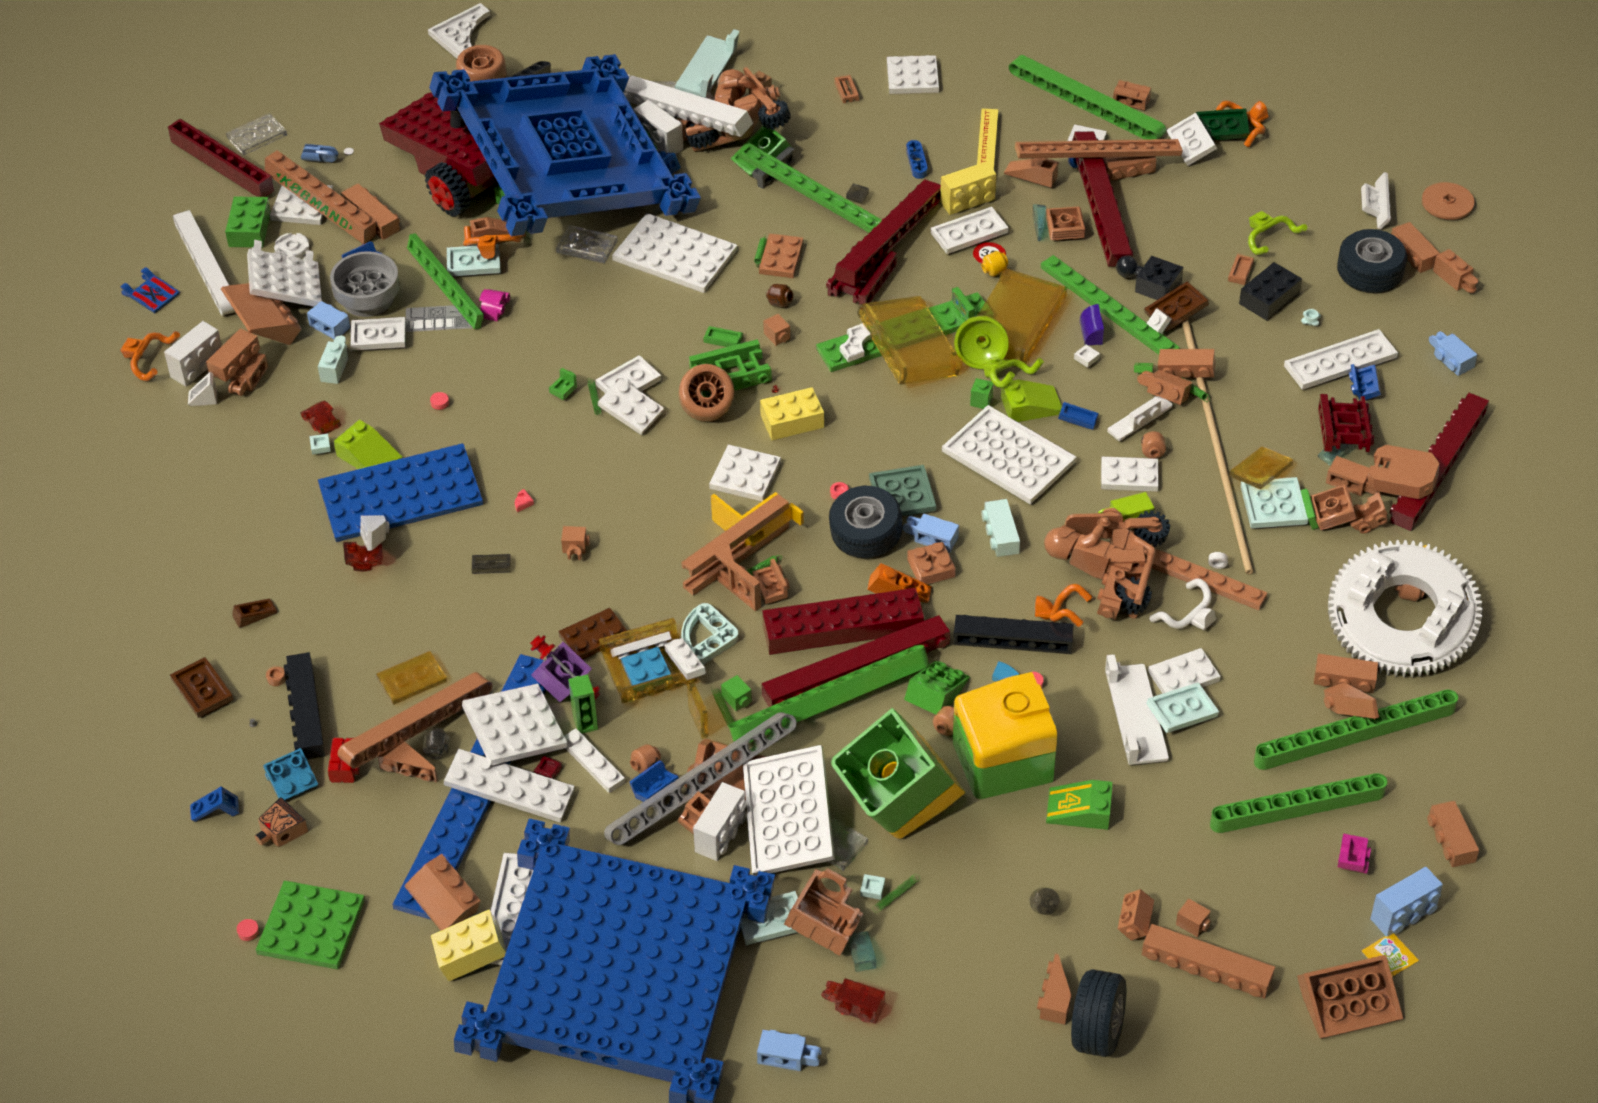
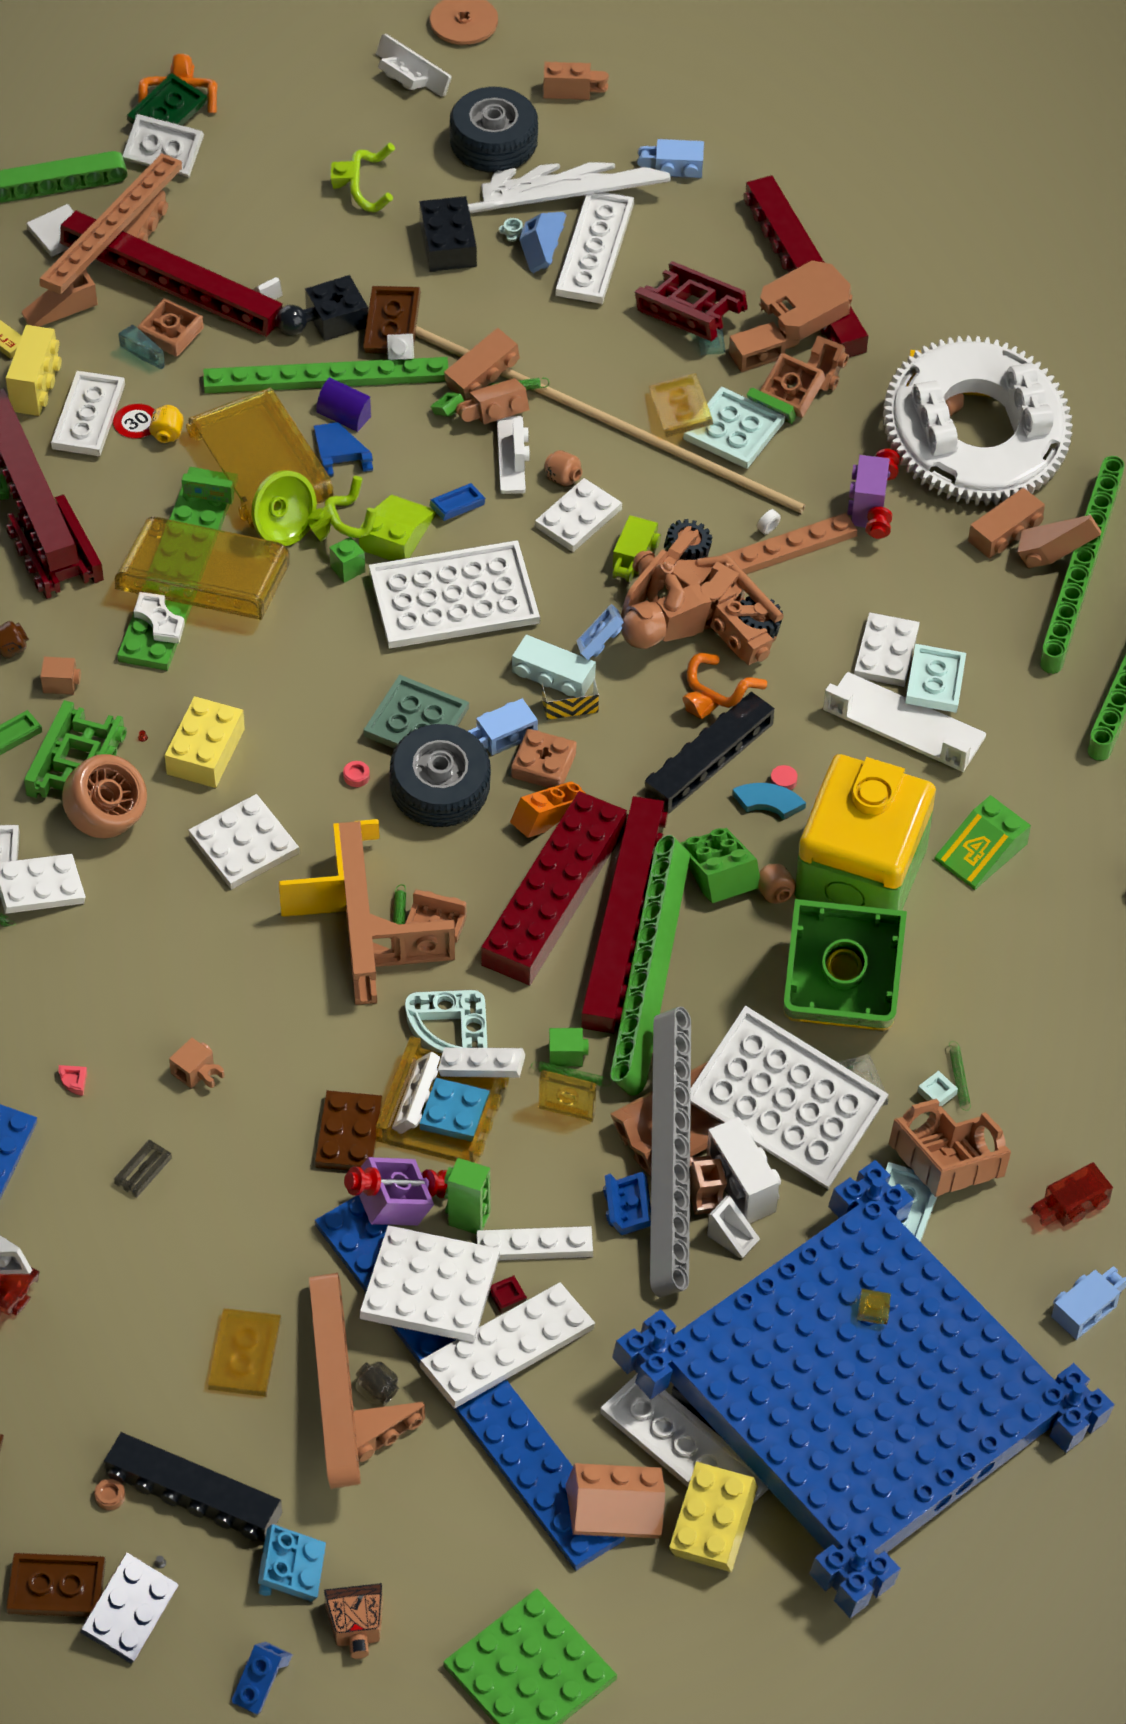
camera: 55 degrees left, 5 degrees up
(209, 724) = (129, 1608): none -> plate
(337, 768) = (310, 1491): red brick -> none
(644, 757) = (583, 1189): nougat head -> none
(663, 930) = (874, 1306): none -> clear yellow plate
(680, 841) = (731, 1228): none -> white slope
(862, 951) = (1023, 1153): clear light blue slope -> none
(982, 553) = (571, 706): none -> sticker
(1037, 530) = (605, 626): none -> light blue plate
(1043, 895) = (1084, 952): clear smoke head -> none
(1061, 342) = (339, 446): none -> blue flag
(1086, 356) = (380, 438): white plate -> none
(1132, 94) = (38, 146): nougat brick -> none
(1141, 246) = (270, 288): none -> white slope
(1200, 616) = (826, 587): white piece -> none
(1241, 269) = (386, 236): nougat tile -> none
(1291, 591) = (870, 490): none -> medium lavender brick
(1315, 331) = (540, 239): none -> medium blue slope
(1361, 311) = (540, 187): none -> white animal
(1365, 382) = (647, 248): blue bracket -> none
(1419, 250) = (521, 81): nougat brick -> none

